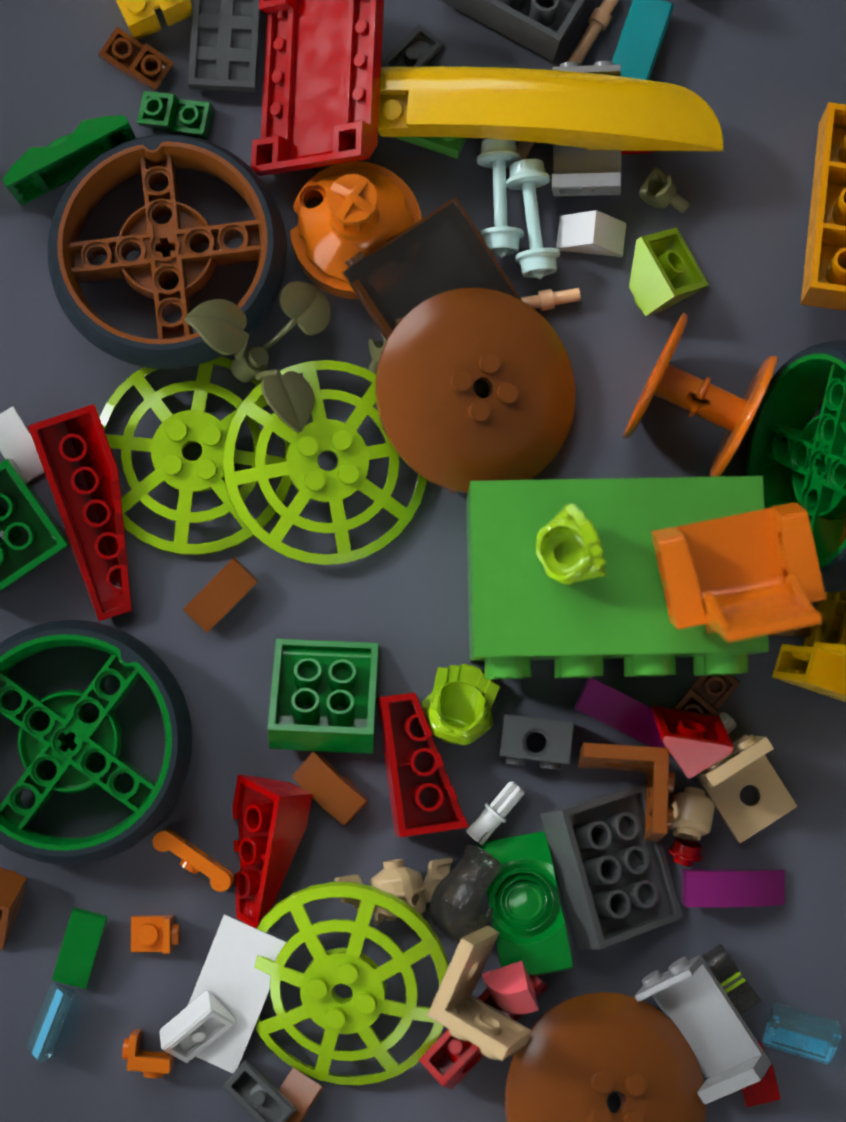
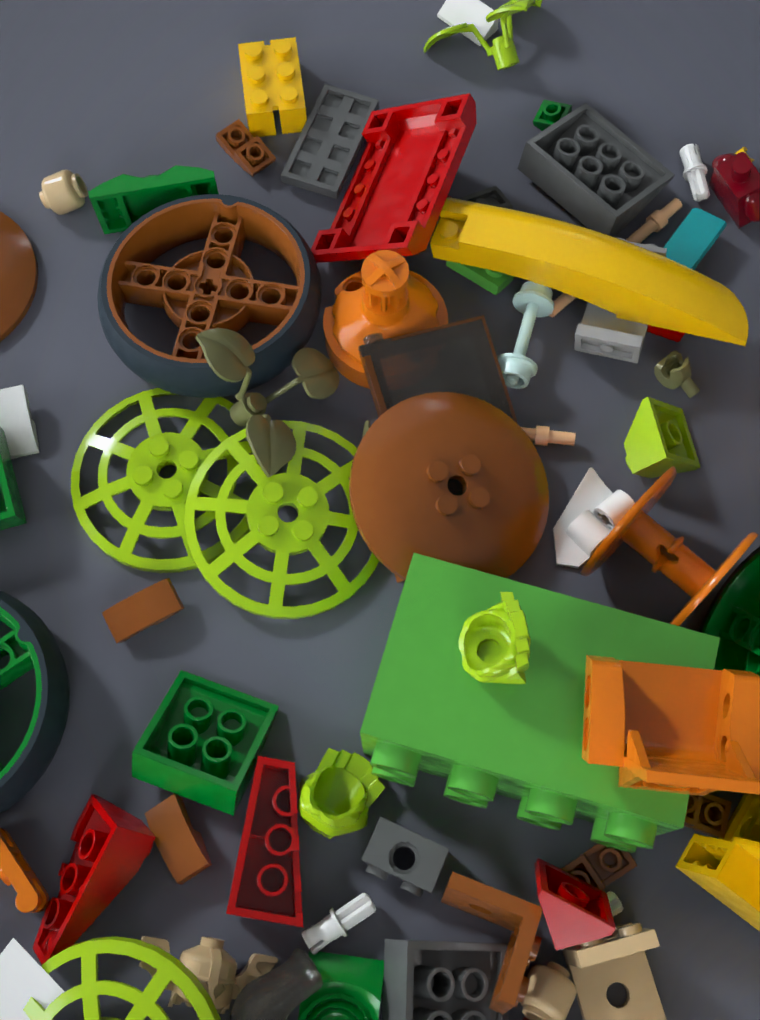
camera: 20 degrees right, 15 degrees down
(89, 502) = (52, 487): red wedge -> none
(175, 115) = (258, 190): green slope -> none
(528, 176) = (544, 396): light aqua piece -> none
(591, 234) = (601, 390): white slope -> none
(616, 374) = (588, 520): none -> white panel
(619, 712) = (500, 854): magenta slope -> none

